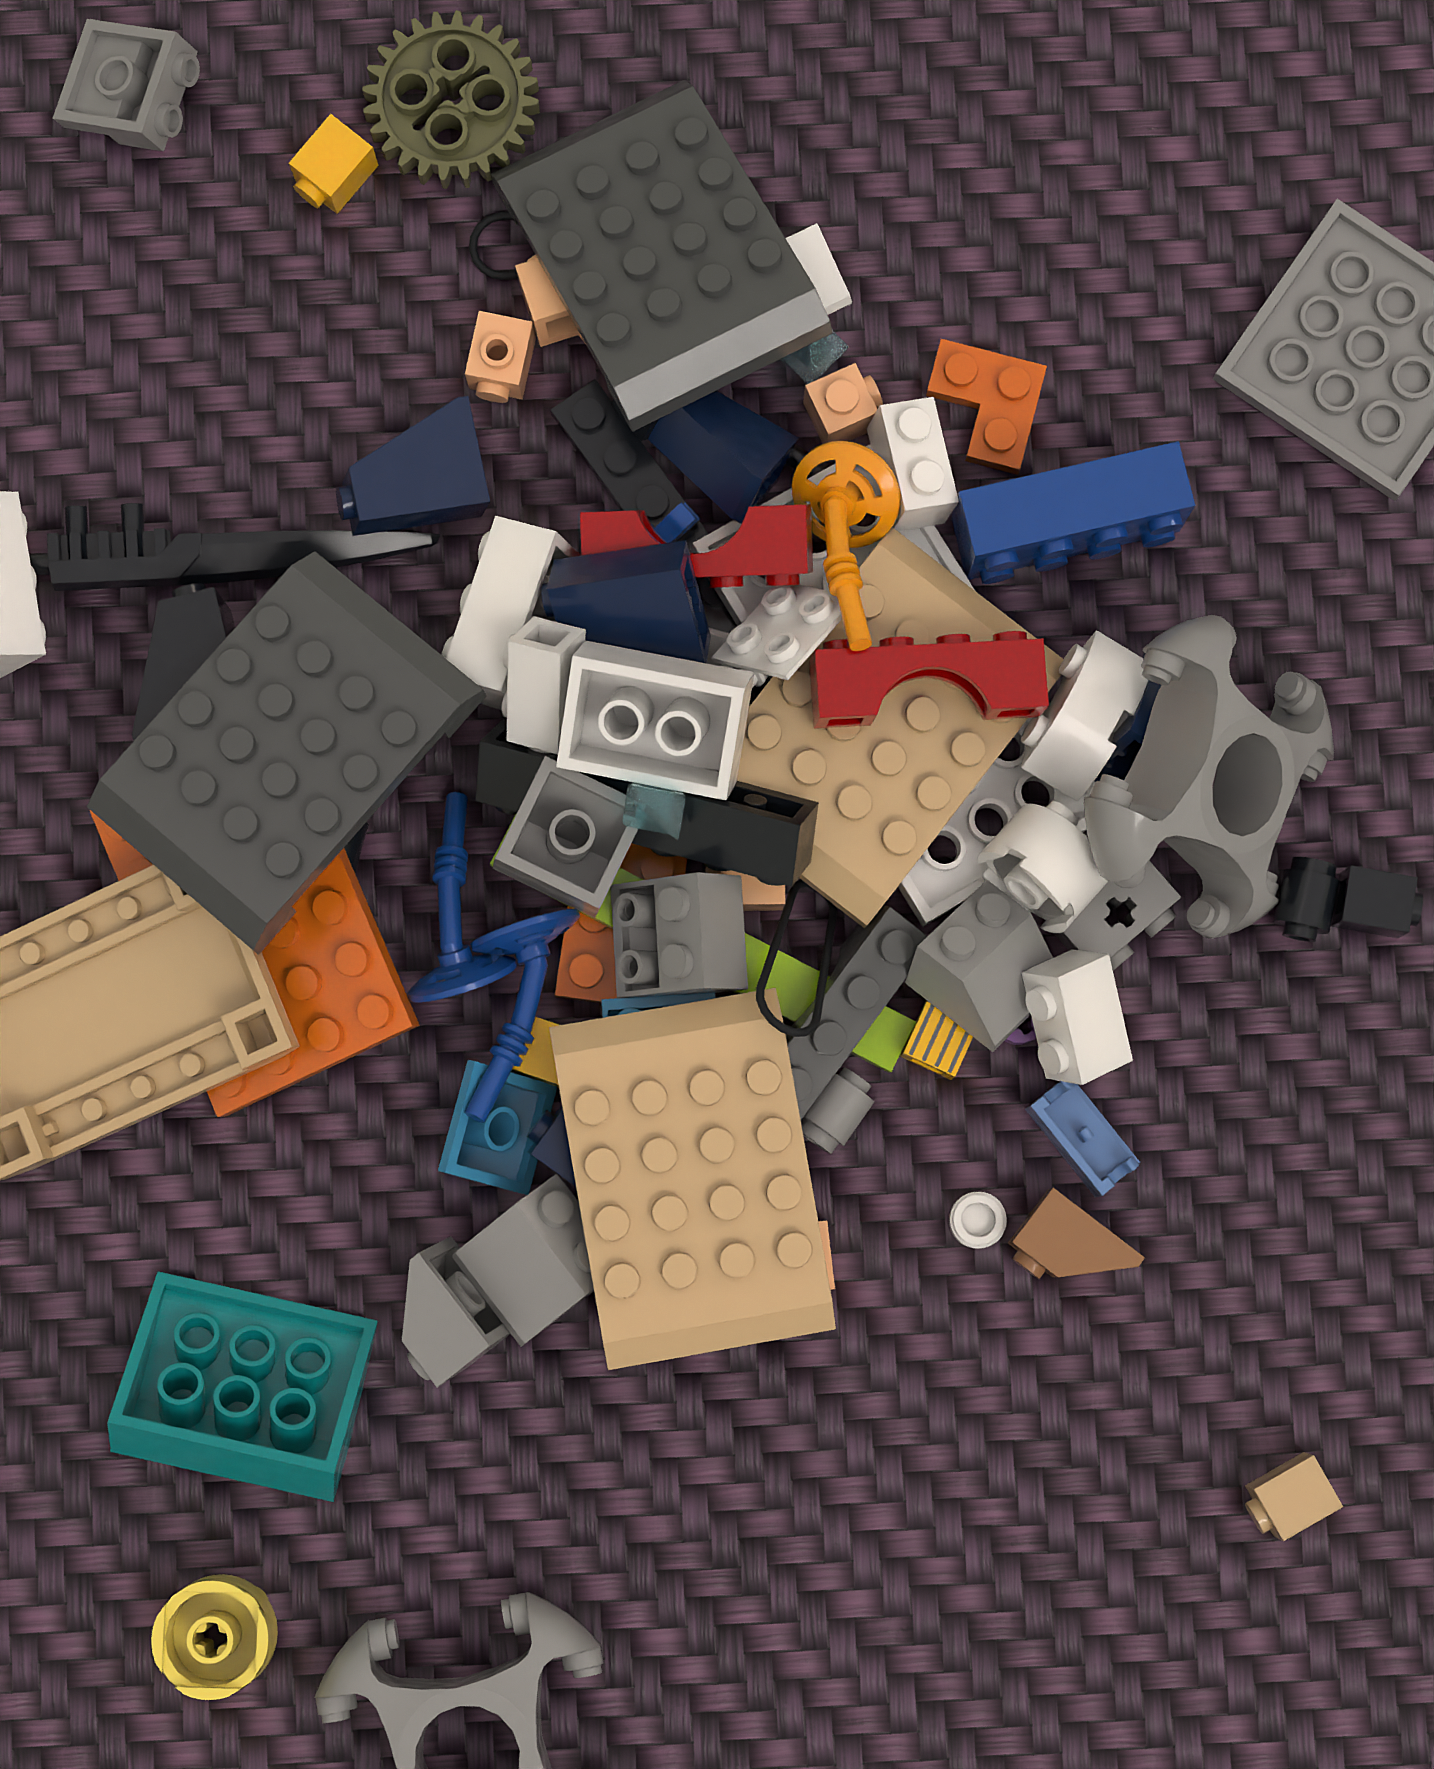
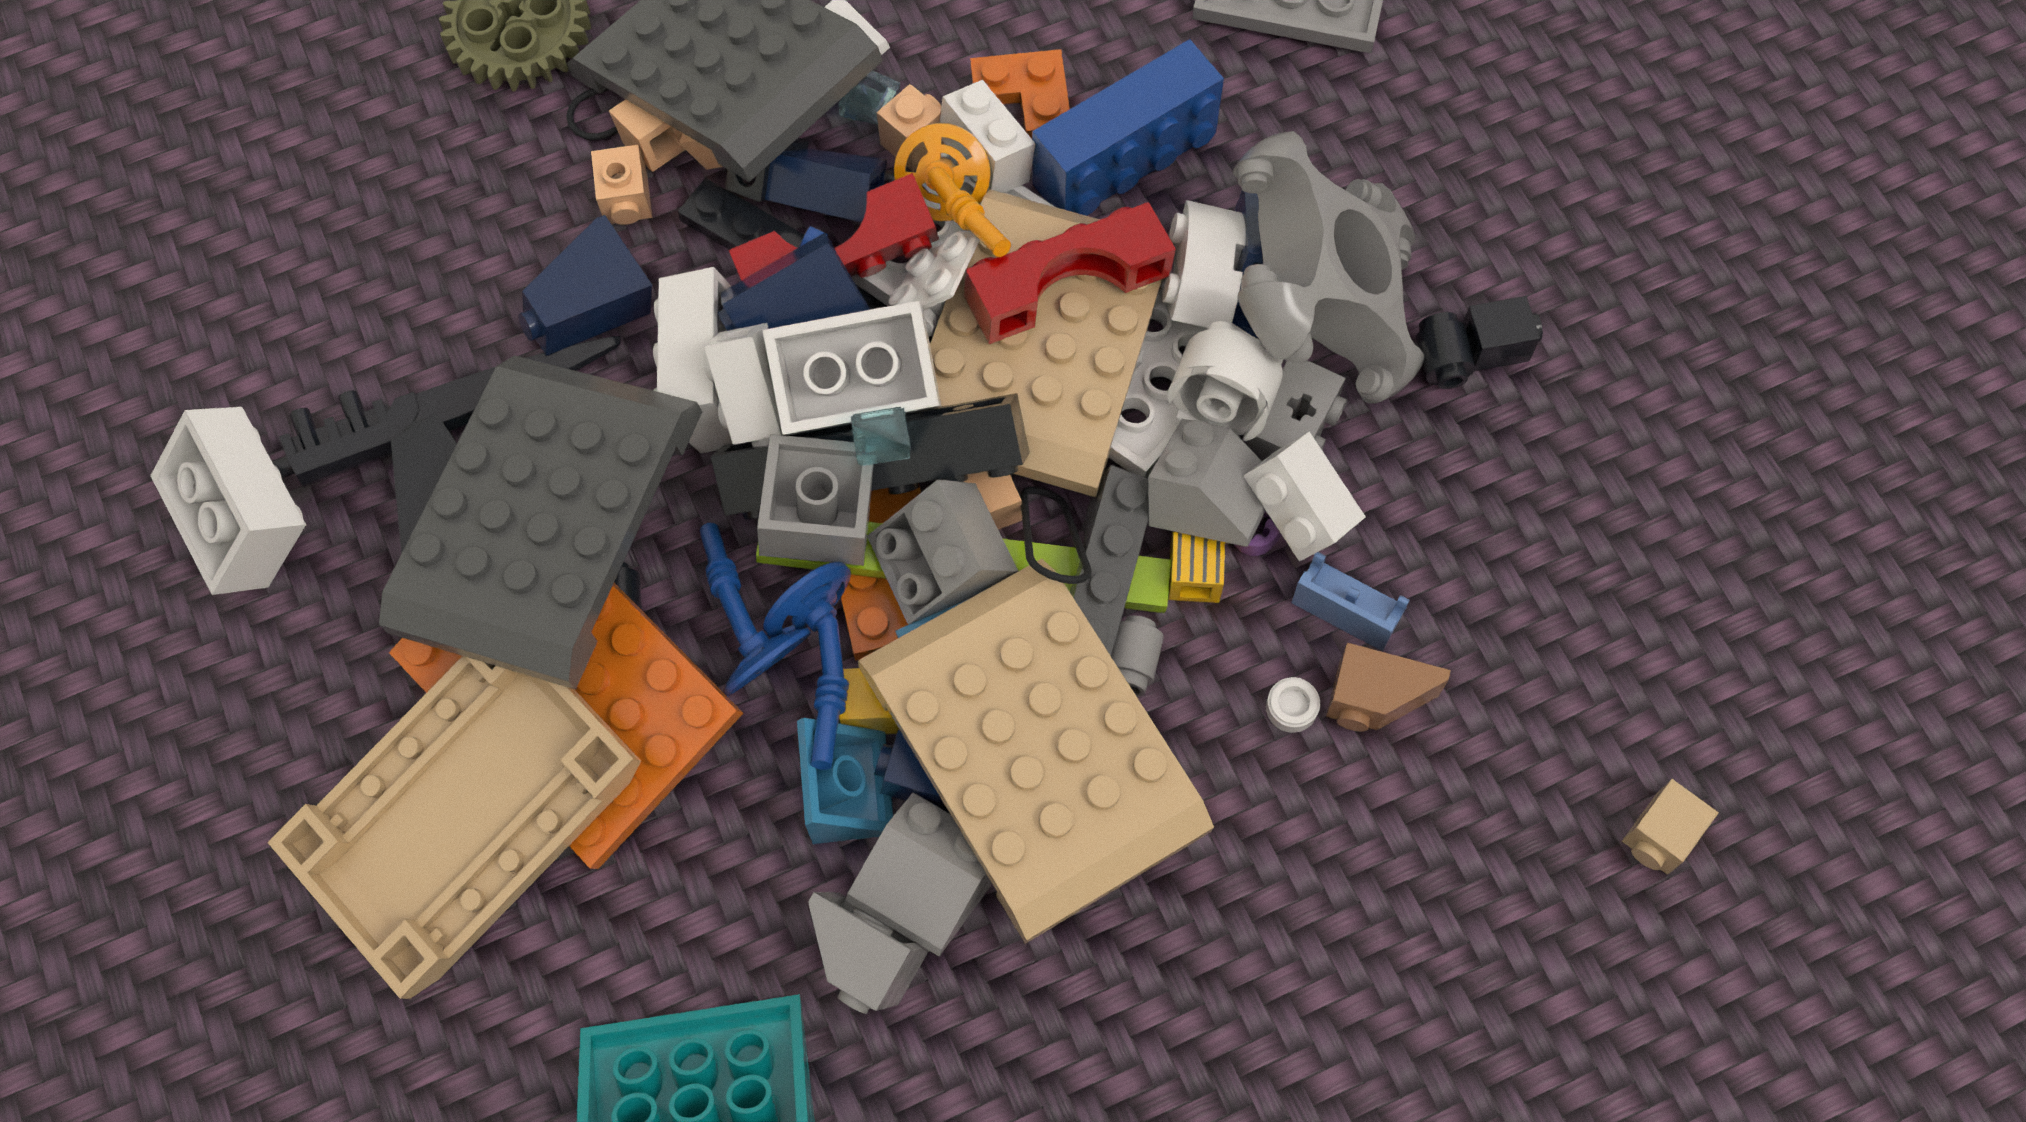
camera: 20 degrees left, 15 degrees down
(128, 84) = (247, 95): light grey plate -> none
(332, 165) = (435, 97): yellow brick -> none

